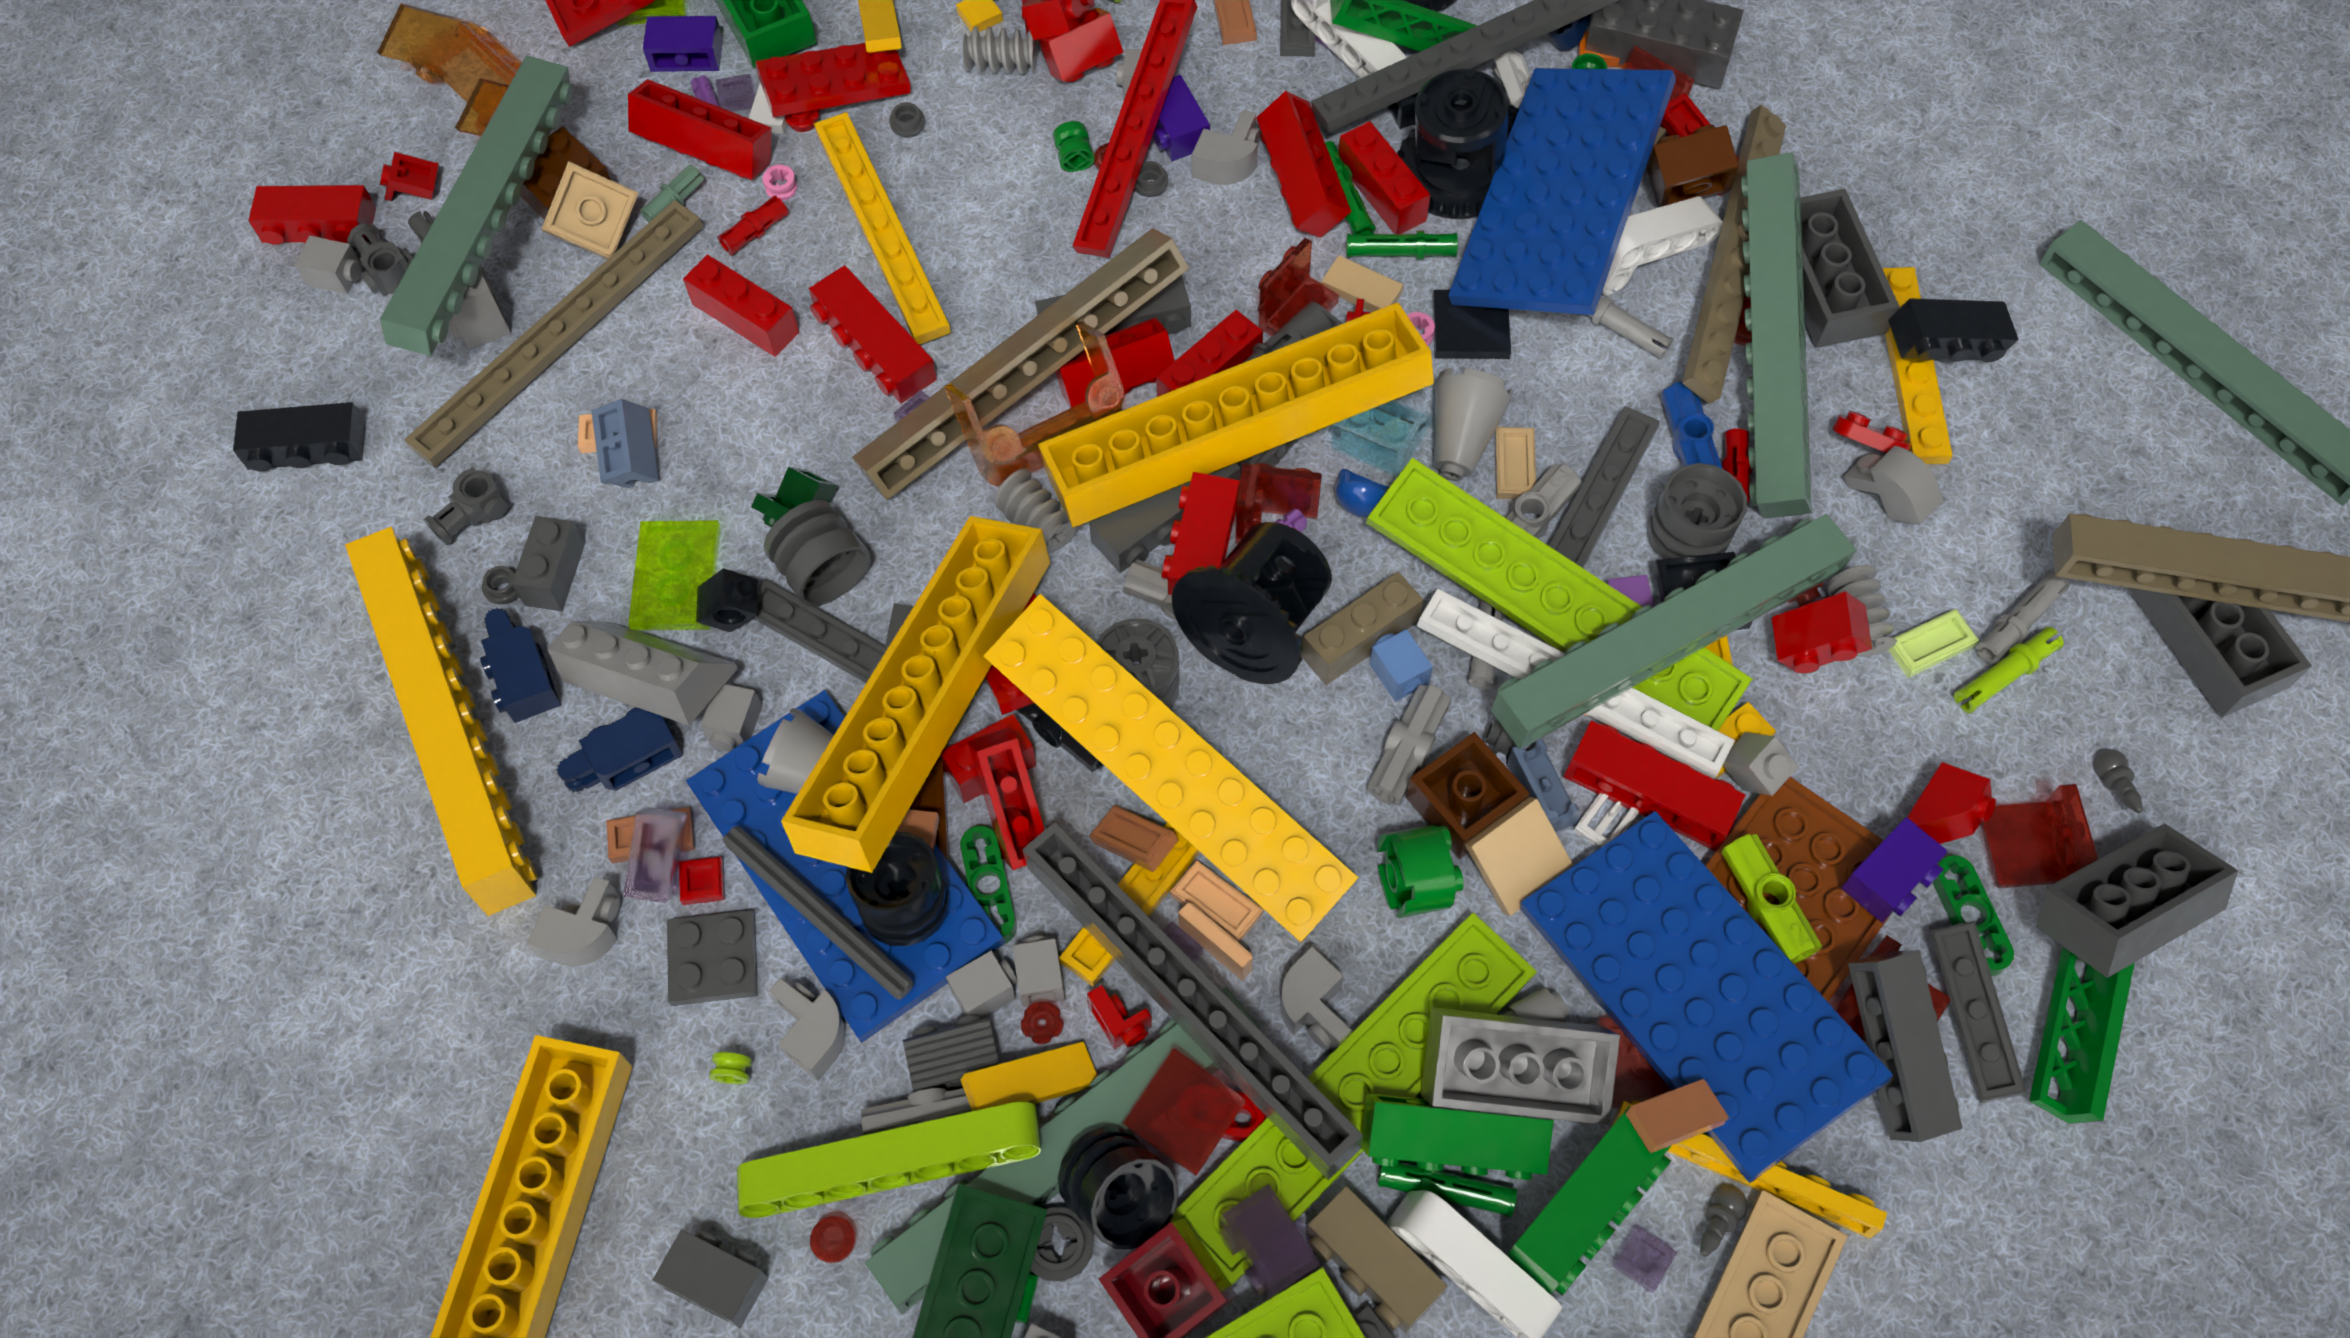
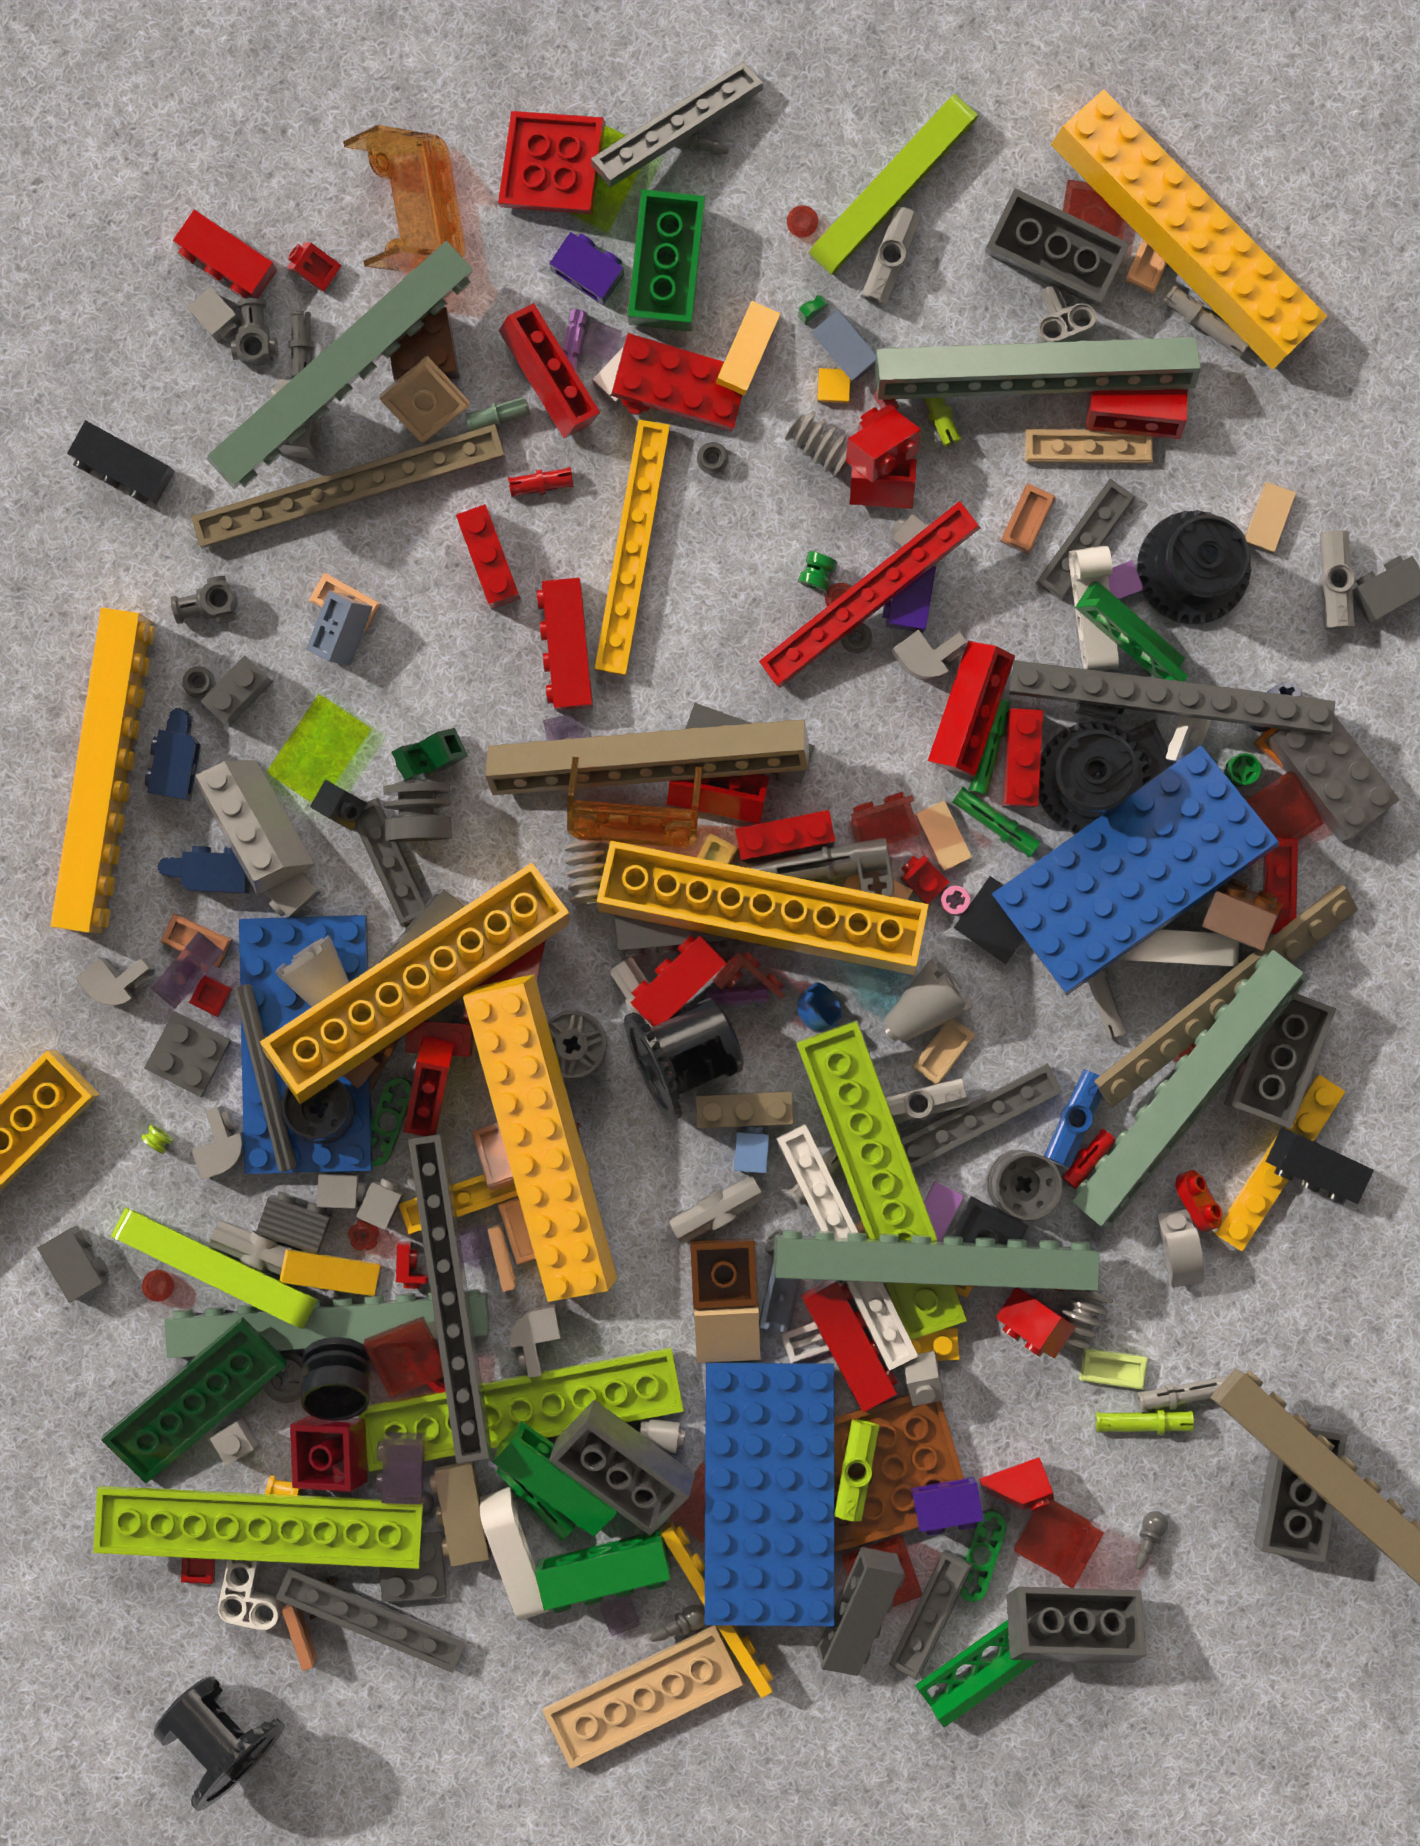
camera: 30 degrees right, 25 degrees up
(782, 173) = (592, 458): bright pink bush -> none
(1418, 870) = (655, 1302): green brick -> none
(1677, 1115) = (683, 1567): nougat tile -> none

